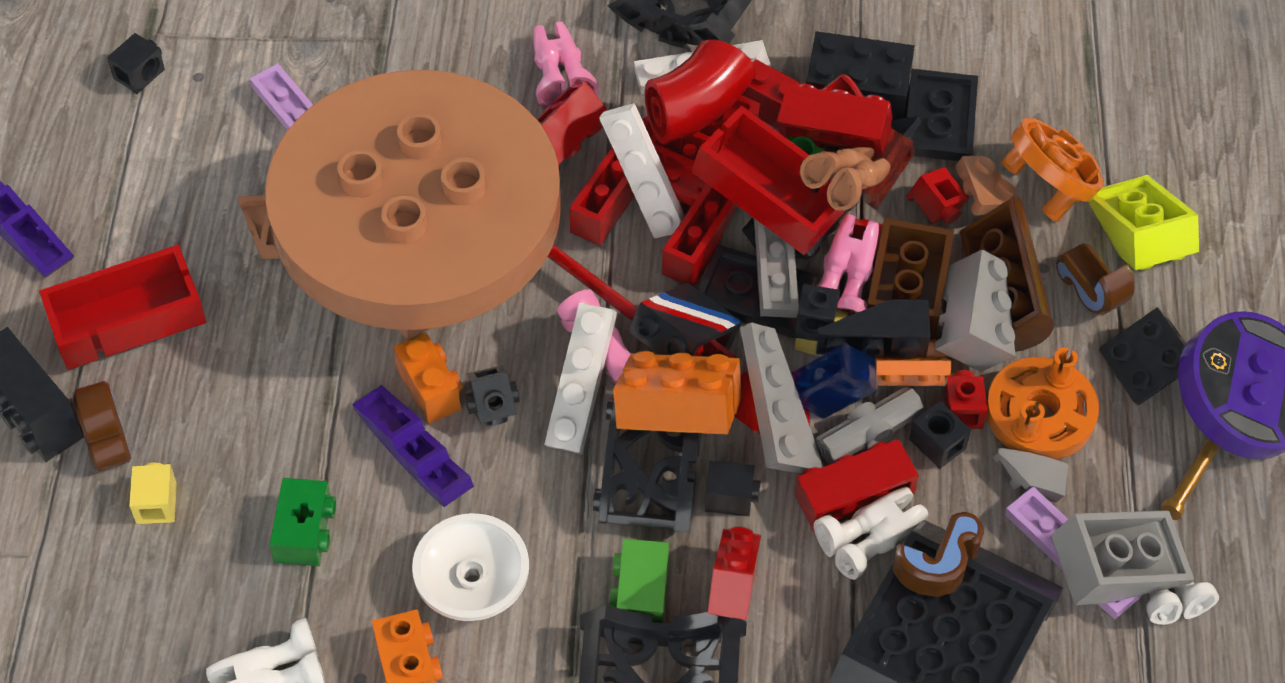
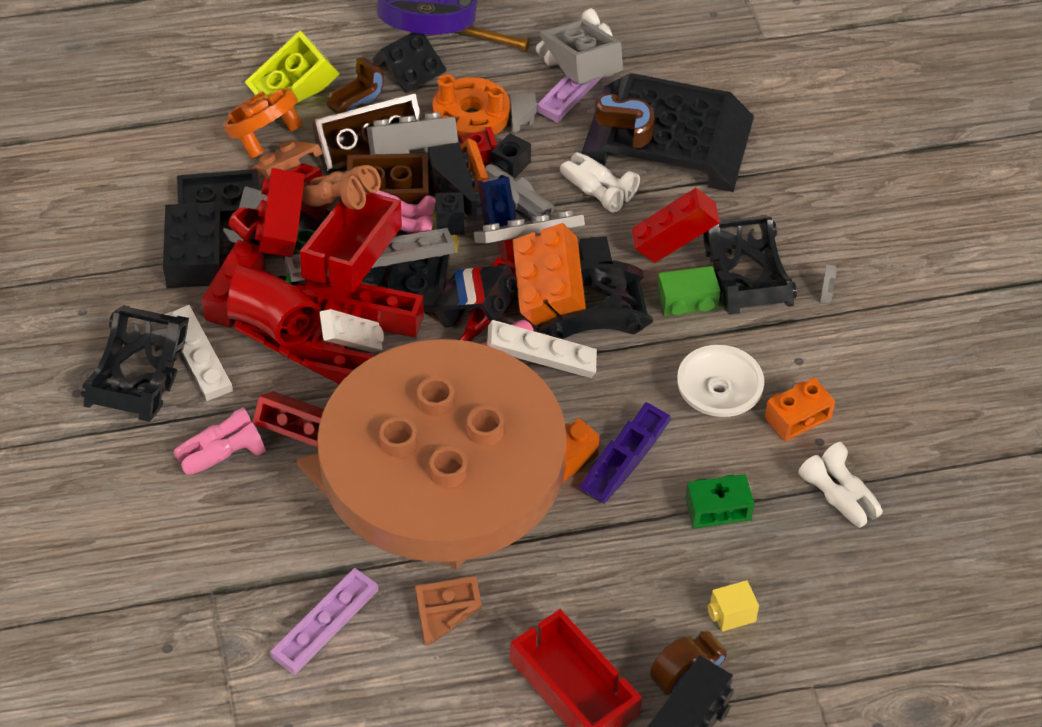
camera: 105 degrees left, 5 degrees down
(483, 386) = (574, 402): black brick -> none
(854, 481) = (567, 191): red brick -> none

